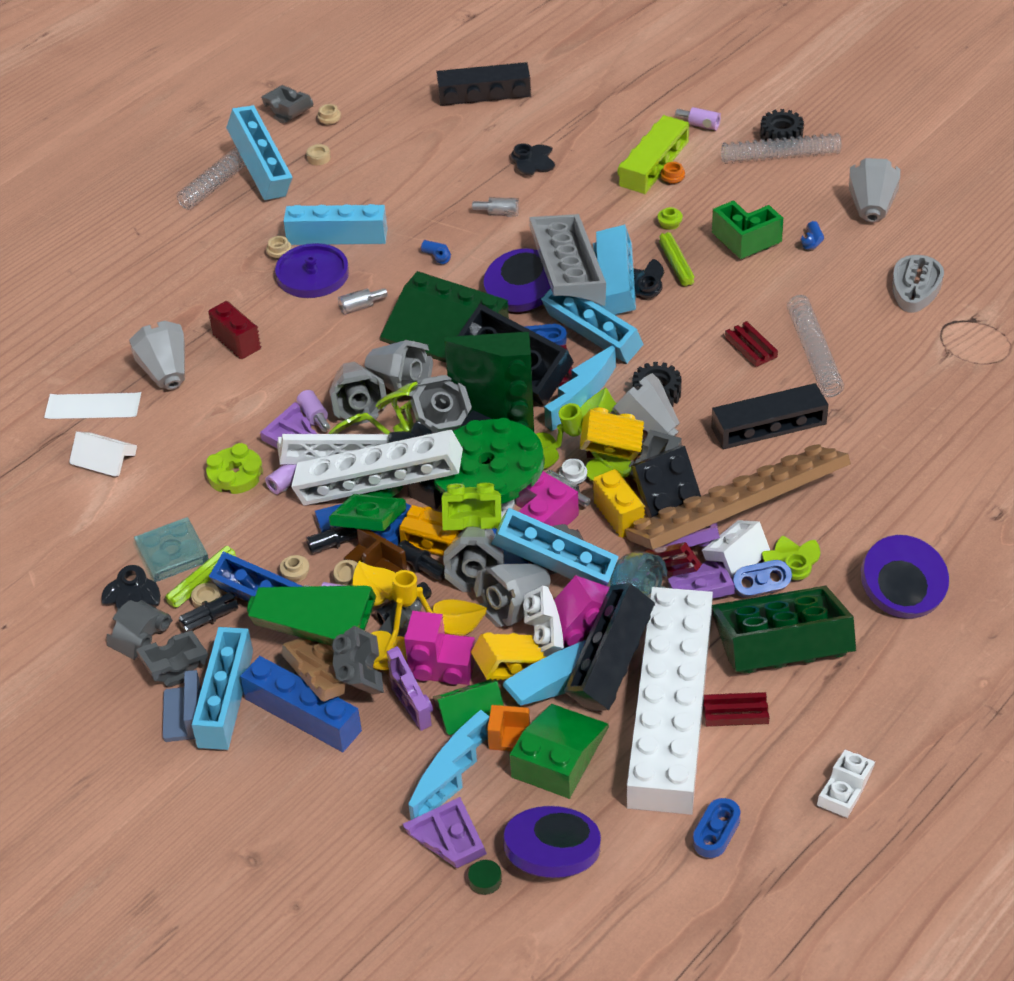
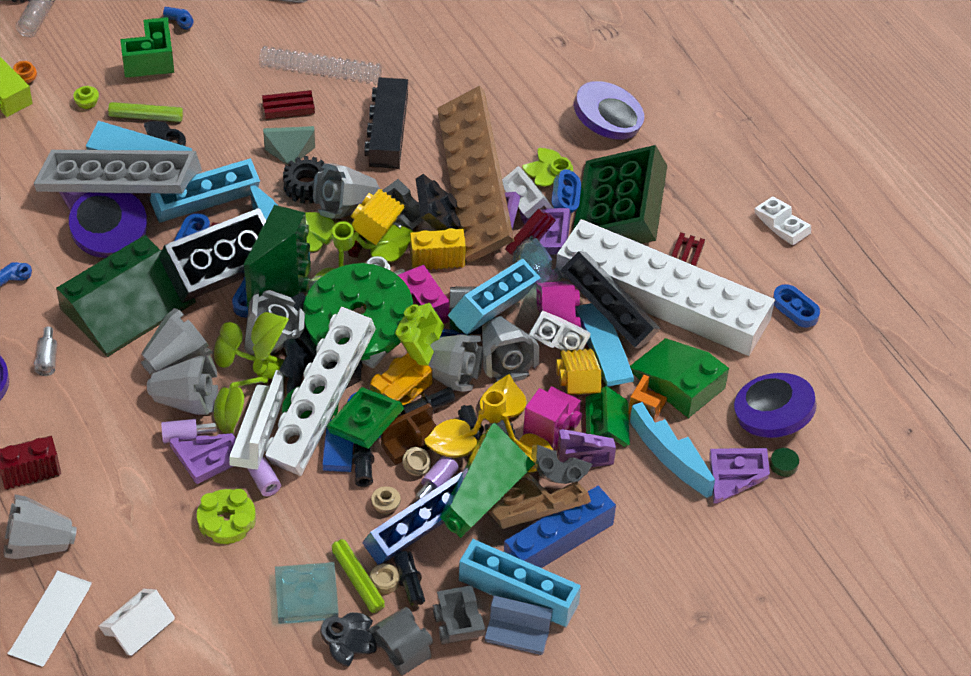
camera: 75 degrees left, 5 degrees up
(696, 360) = (289, 142): none -> sand green slope

